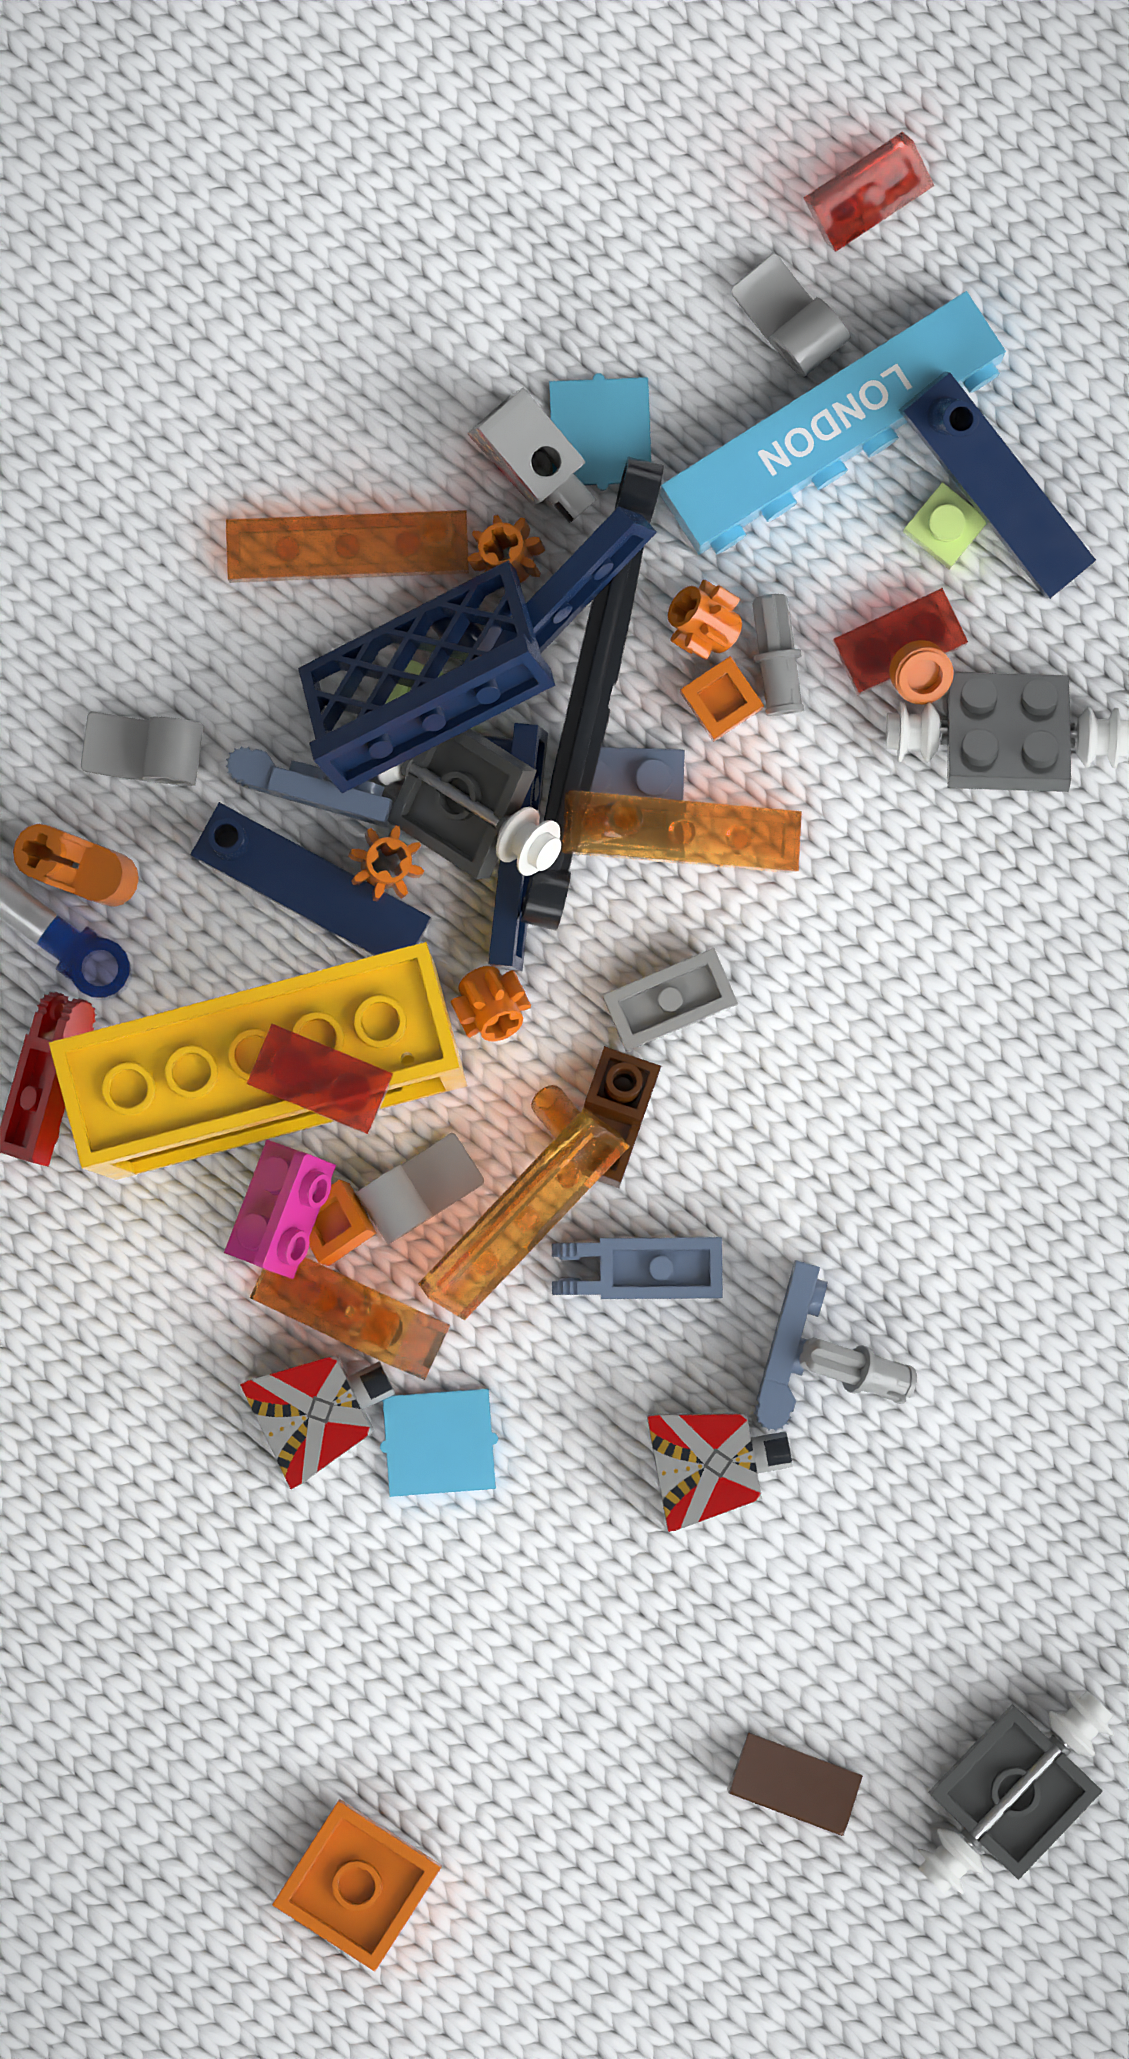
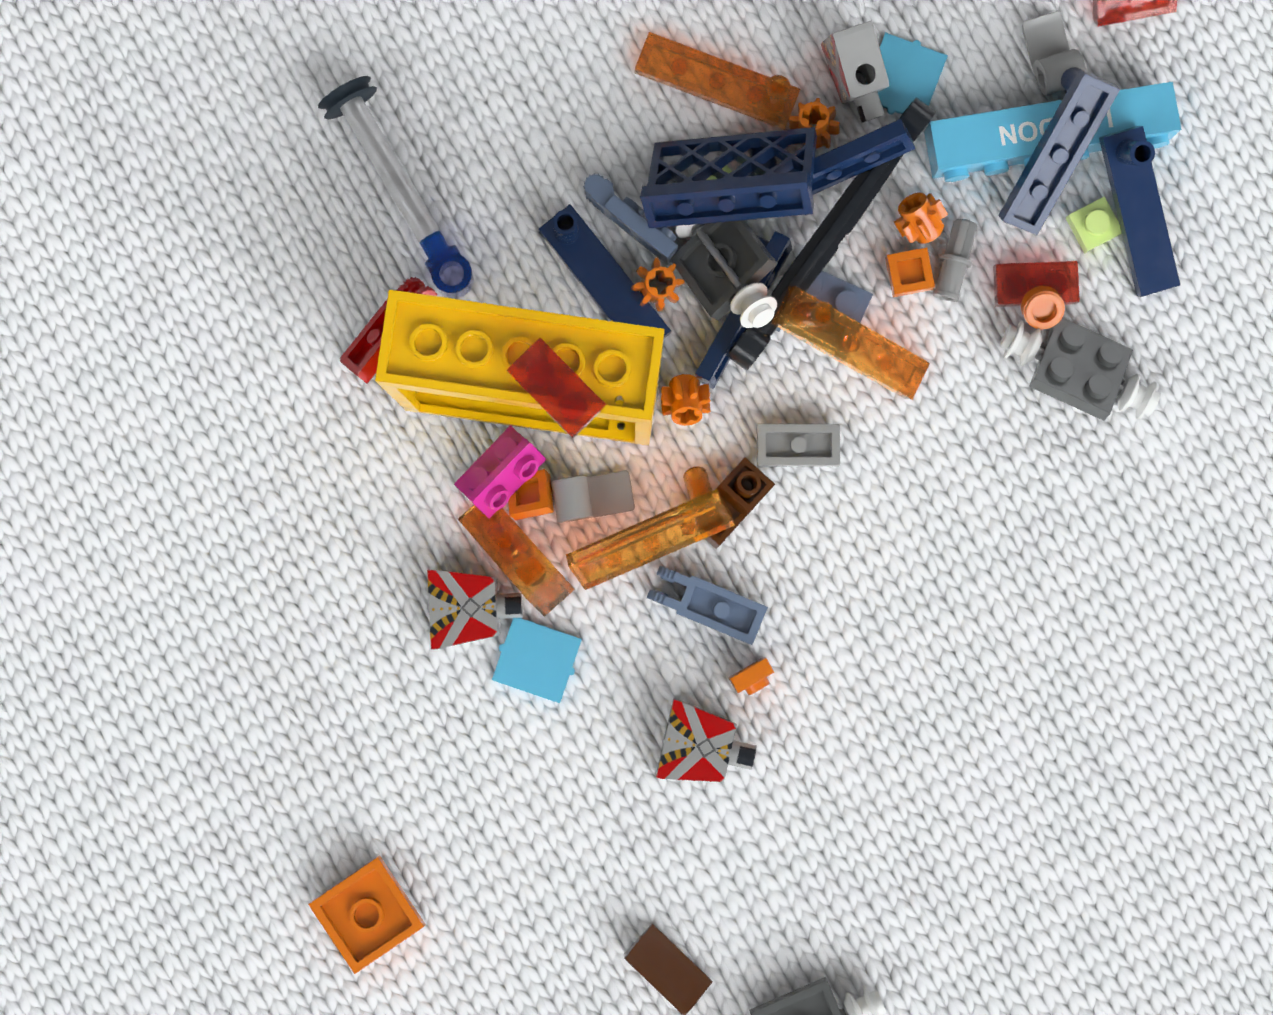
camera: 20 degrees right, 0 degrees up
(49, 857) = (451, 192): orange piece -> none
(142, 750) = (541, 155): light grey panel -> none
(741, 1341) = (752, 677): none -> orange plate
(802, 1297) = (780, 694): sand blue hinge -> none
(851, 451) = (1059, 149): none -> piece
(859, 1369) = (819, 727): light grey axle -> none

